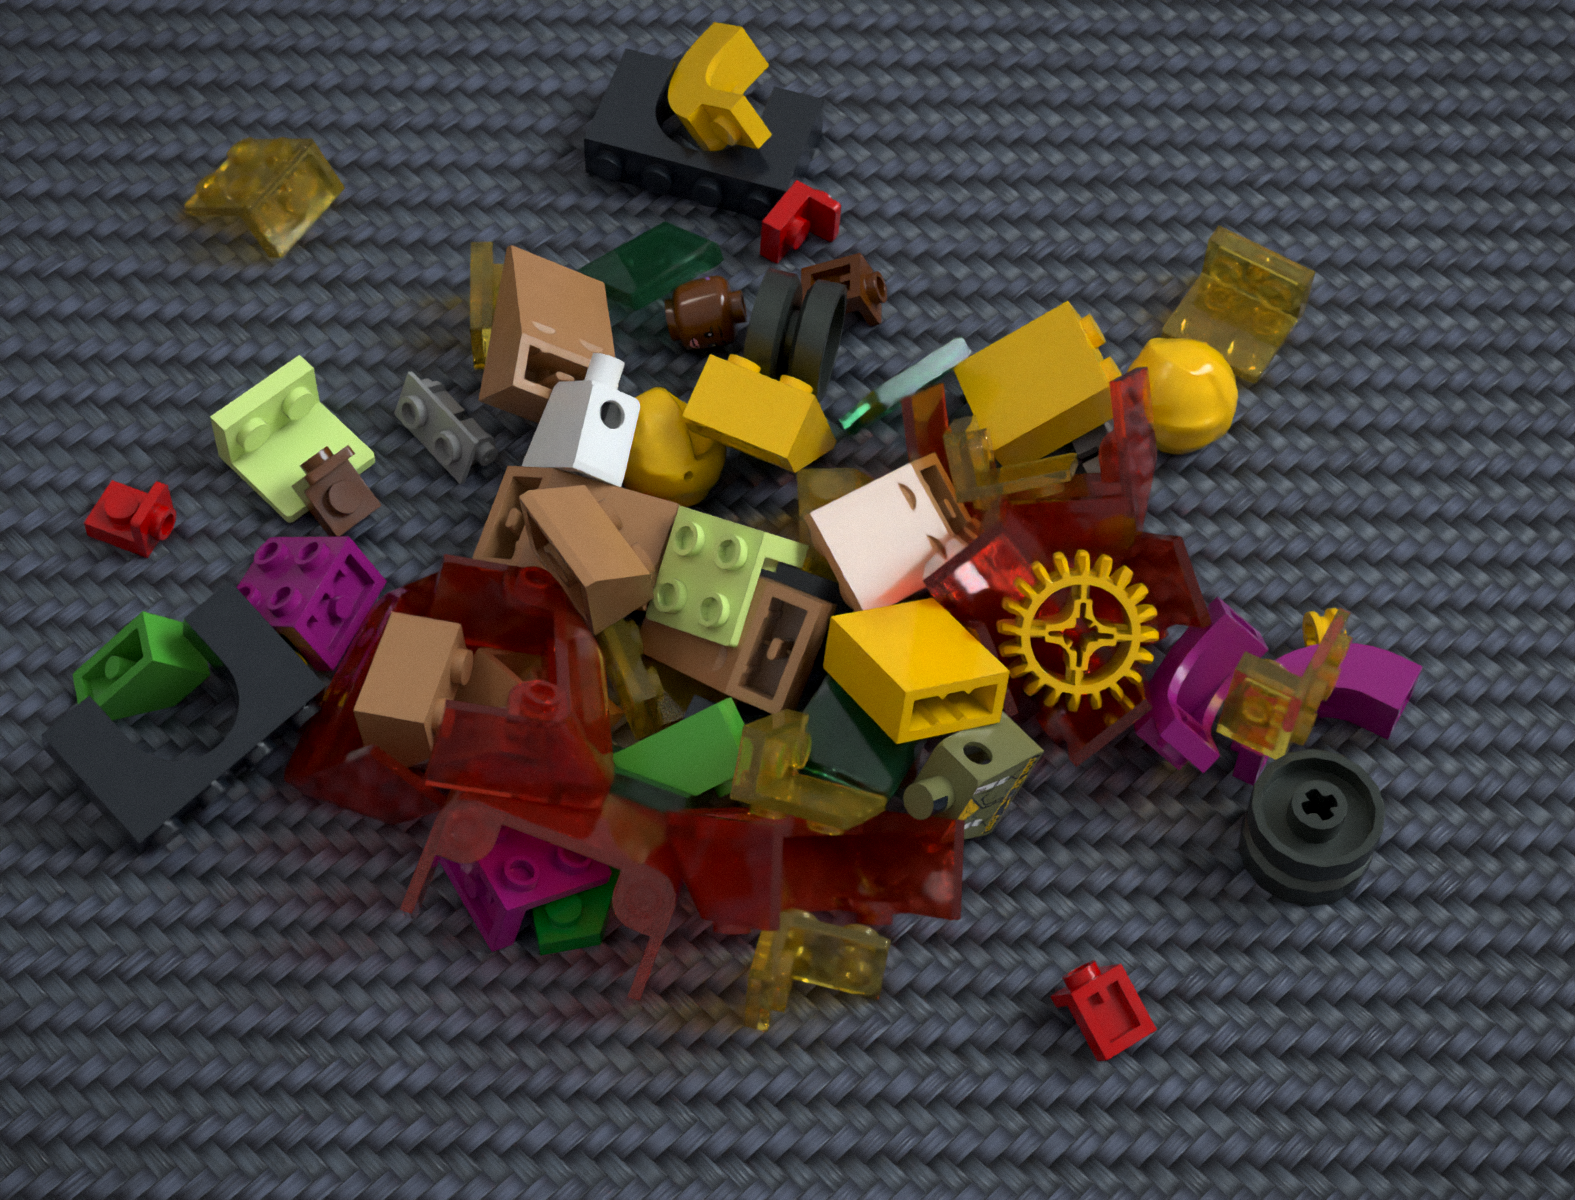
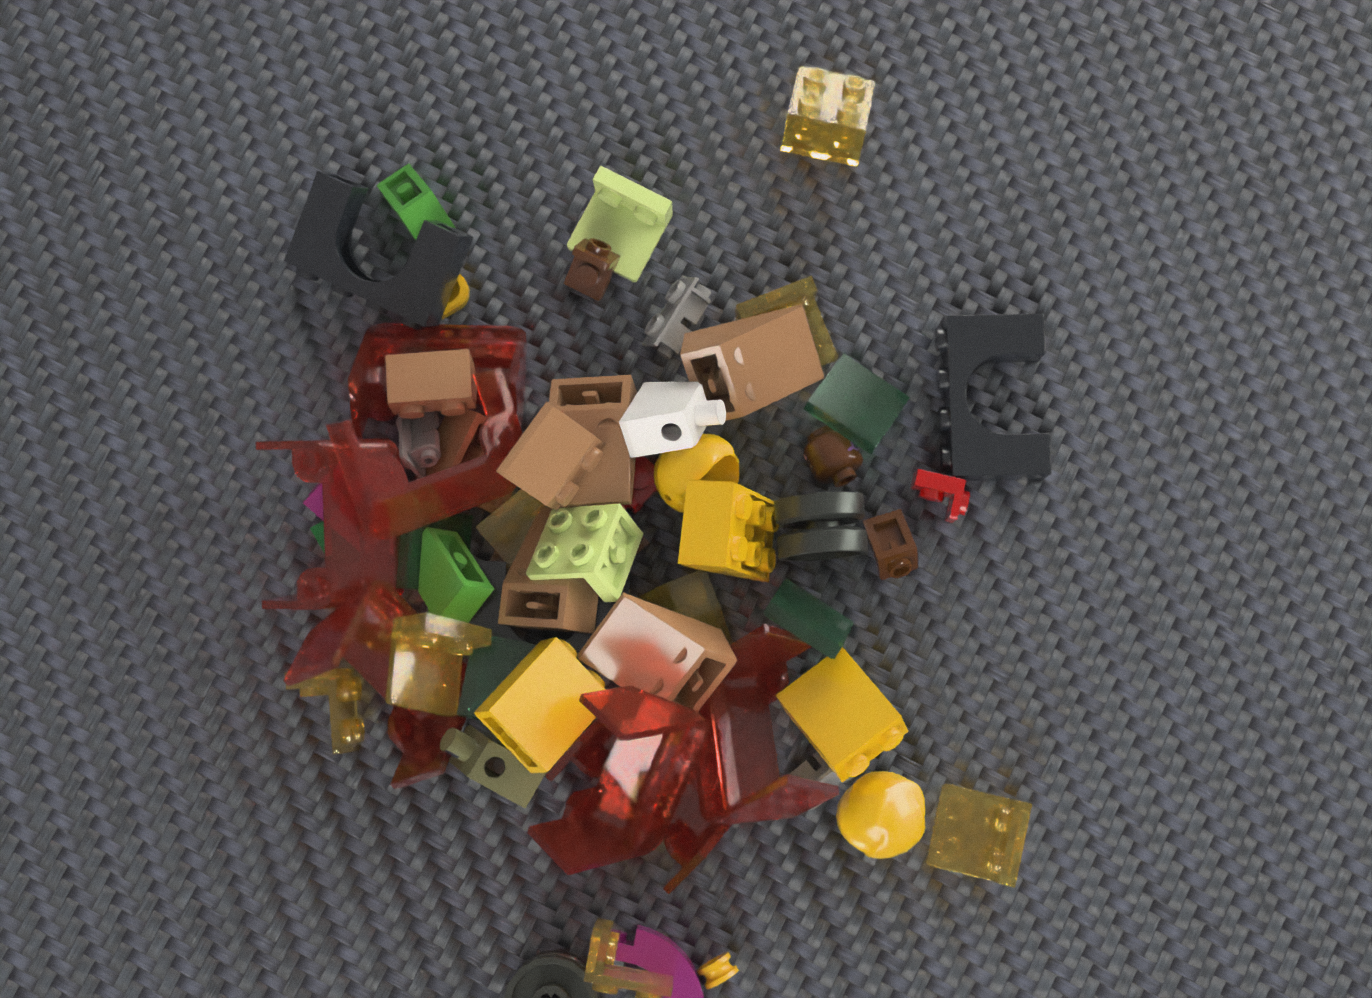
camera: 75 degrees right, 25 degrees up
(132, 517) = (533, 147): red bracket -> none
(313, 593) = (506, 280): magenta bracket -> none
(710, 88) = (1029, 384): yellow arch -> none
(969, 457) = (743, 714): clear yellow bracket -> none
(1105, 1008) = (381, 896): red bracket -> none
(1106, 633) = (622, 829): yellow gear -> none
(1194, 685) = (630, 889): magenta arch -> none

